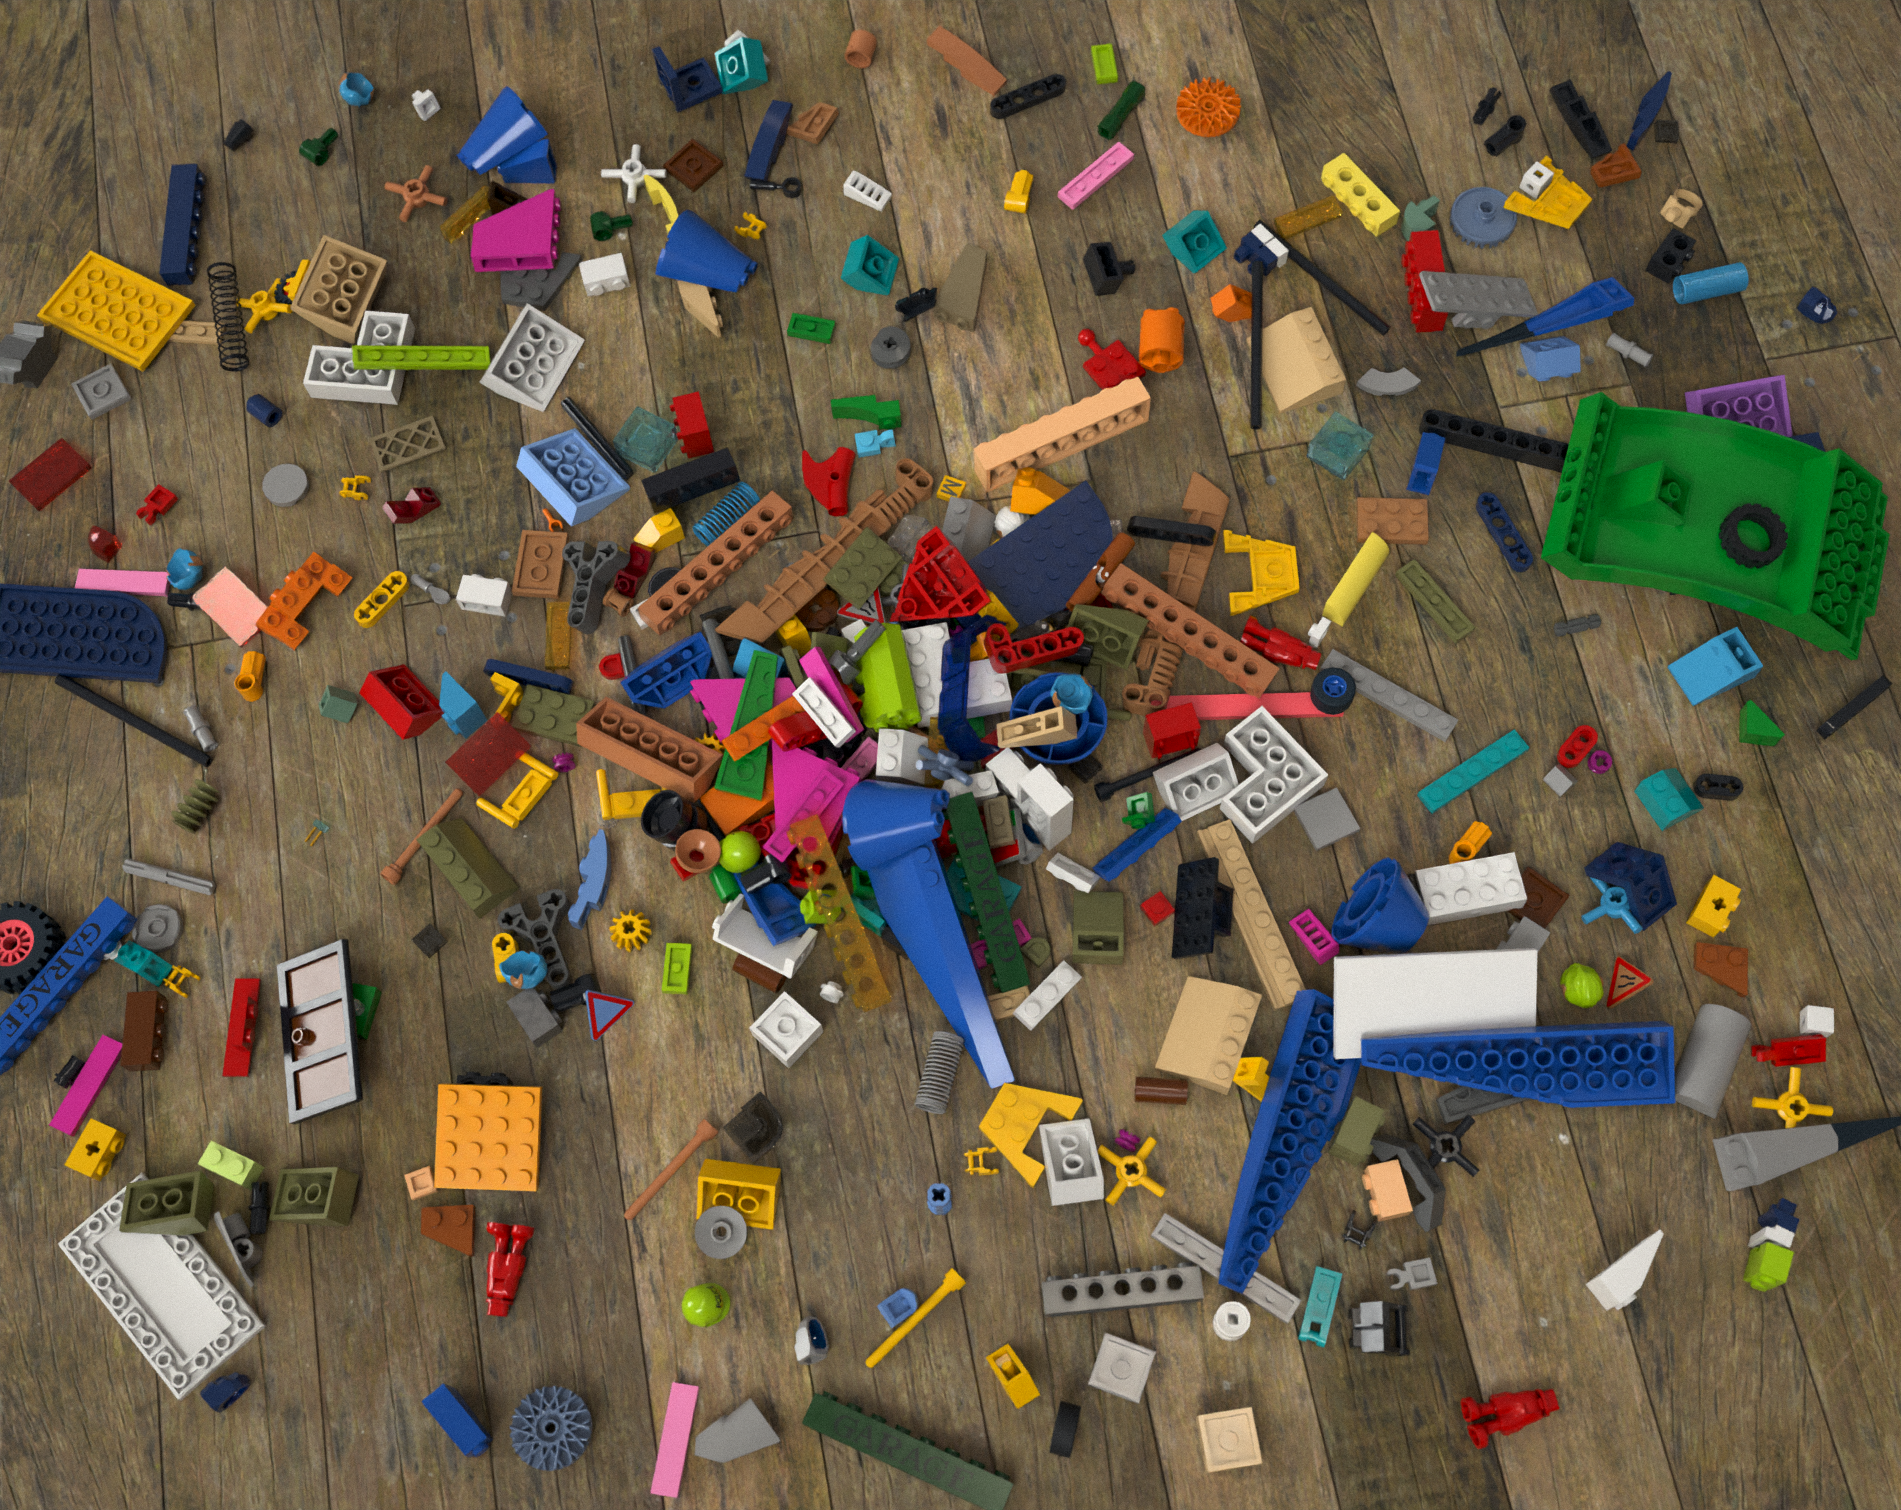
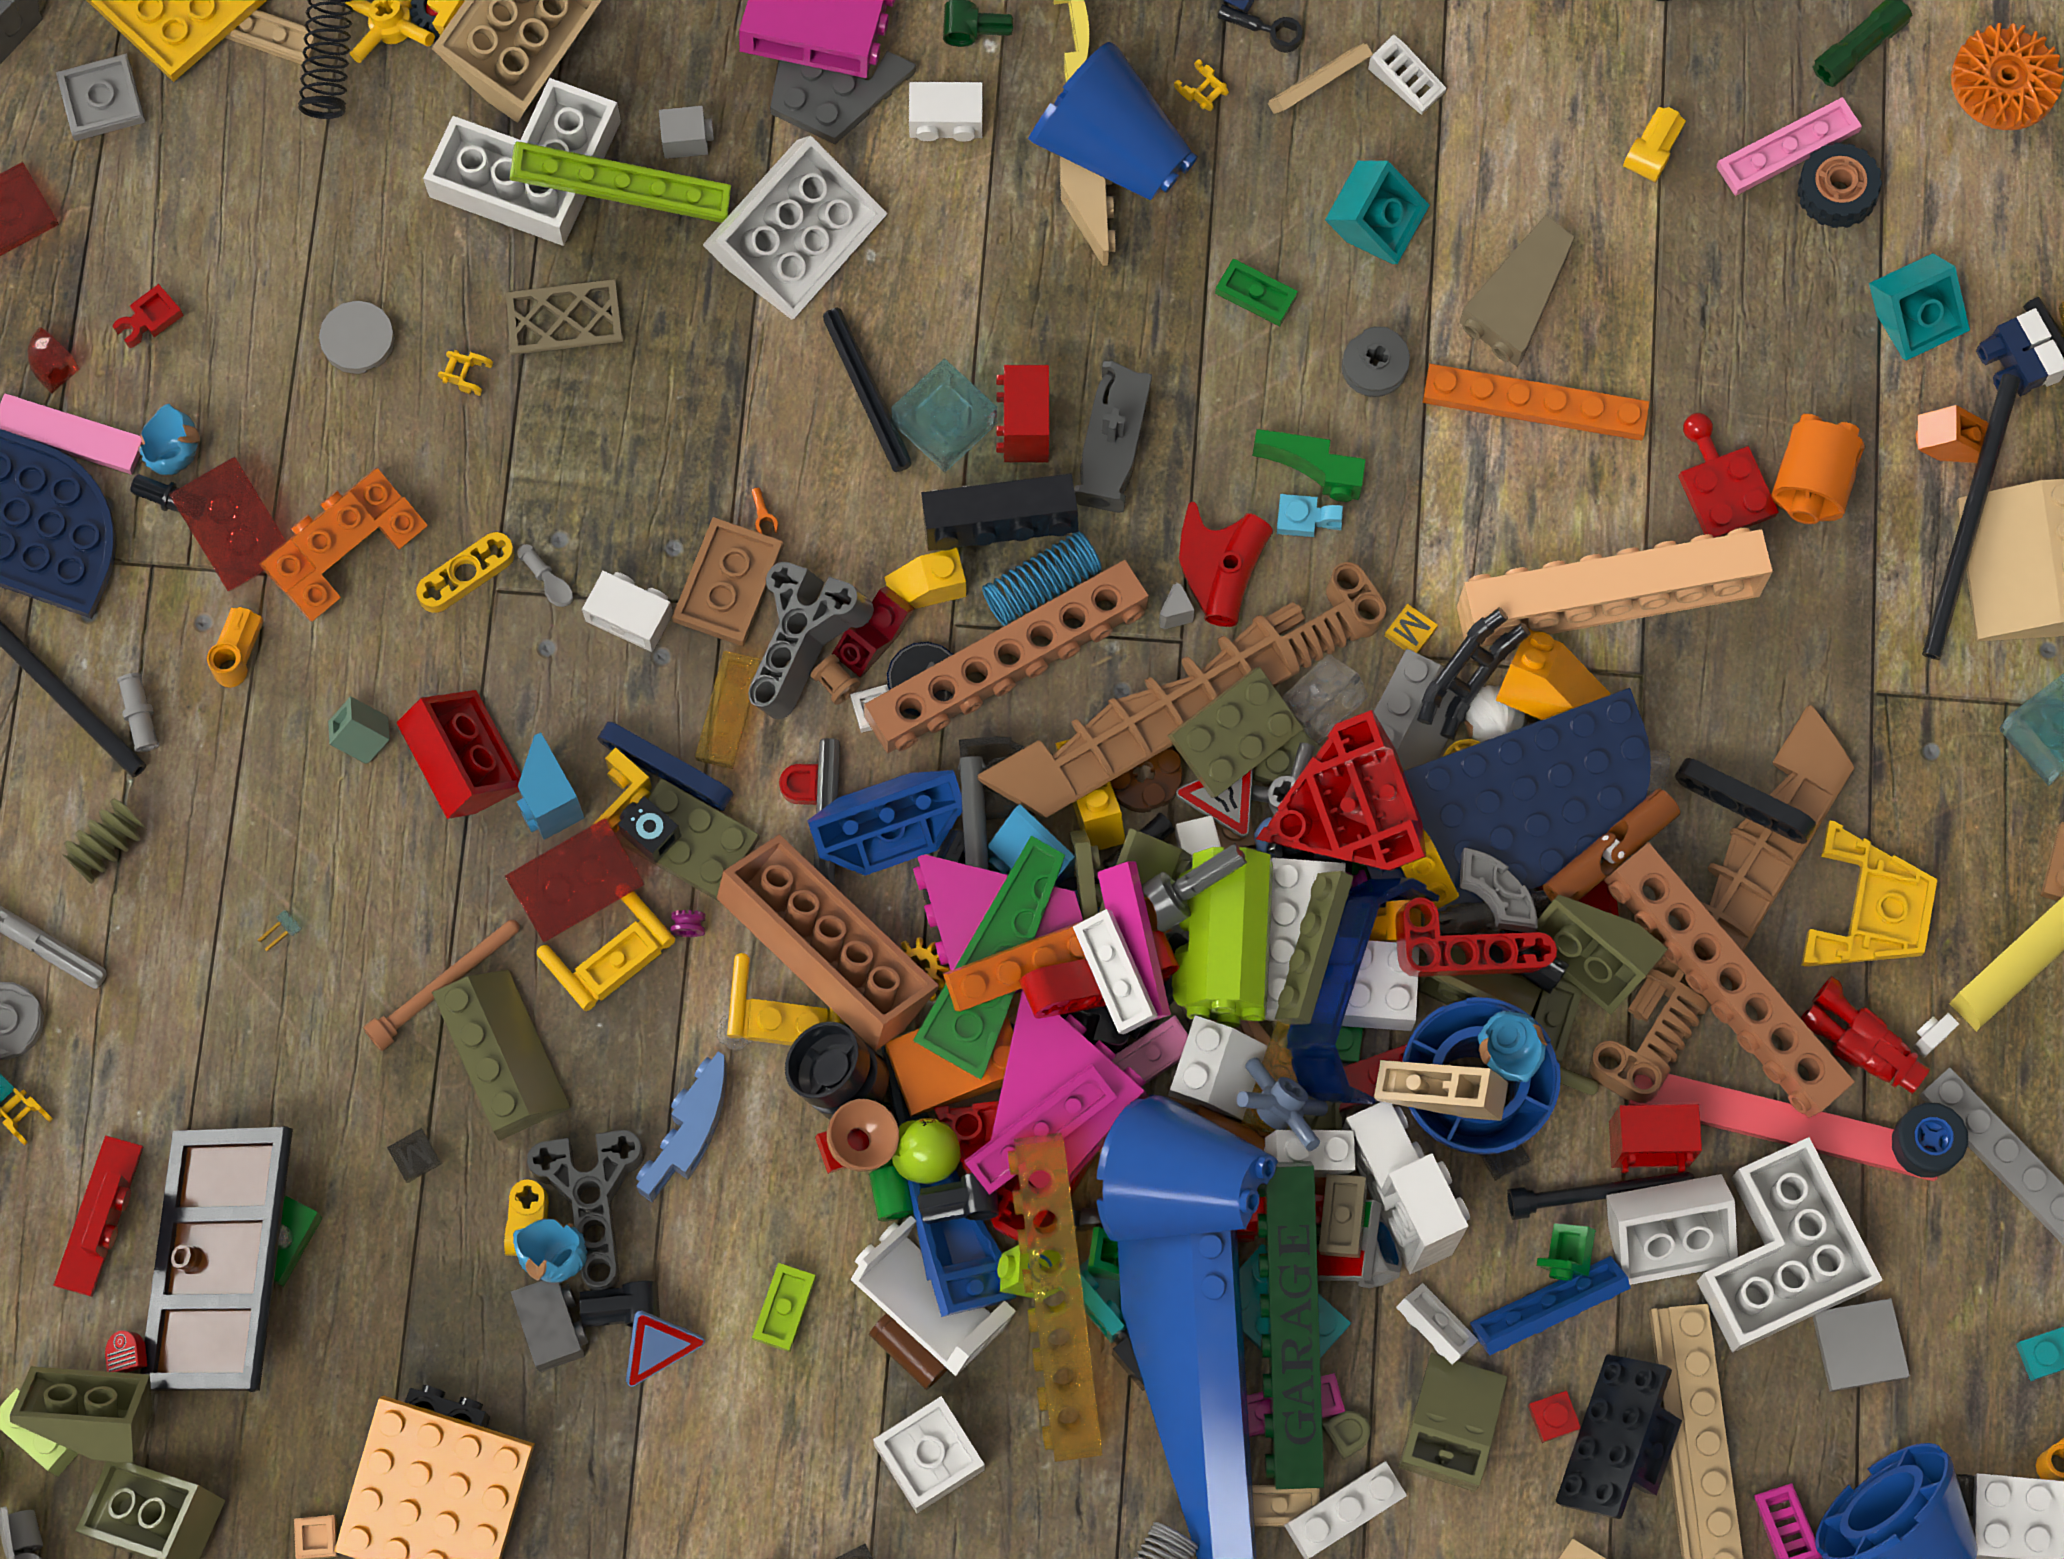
camera: 10 degrees right, 5 degrees up
(258, 1142) = (86, 1410): none -> olive slope
(258, 1208) = (64, 1509): black axle -> none
(263, 410) = (350, 201): dark blue brick -> none
(276, 1104) = (125, 1352): none -> red tile
(416, 505) = (552, 428): dark red slope -> none
(454, 323) = (685, 132): none -> light grey brick
(526, 712) = (648, 829): none -> black brick
(571, 475) = (812, 444): light blue slope -> none
(632, 939) = (742, 1226): yellow gear -> none
(748, 427) = (1113, 437): none -> dark grey piece
(810, 511) = (1176, 609): none -> light grey slope
(817, 204) = (1319, 78): none -> tan tile
(831, 992) = (1013, 1411): white plate -> none
(917, 303) = (1438, 299): black hinge -> none
(939, 671) = (1313, 948): none -> olive plate
(989, 347) = (1536, 402): none -> orange plate
(1000, 491) = (1488, 663): none -> black piece
(1042, 614) = (1499, 889): none -> light grey tile
(1104, 269) = (1759, 319): black brick -> none
(1130, 188) = (1843, 165): none -> black wheel

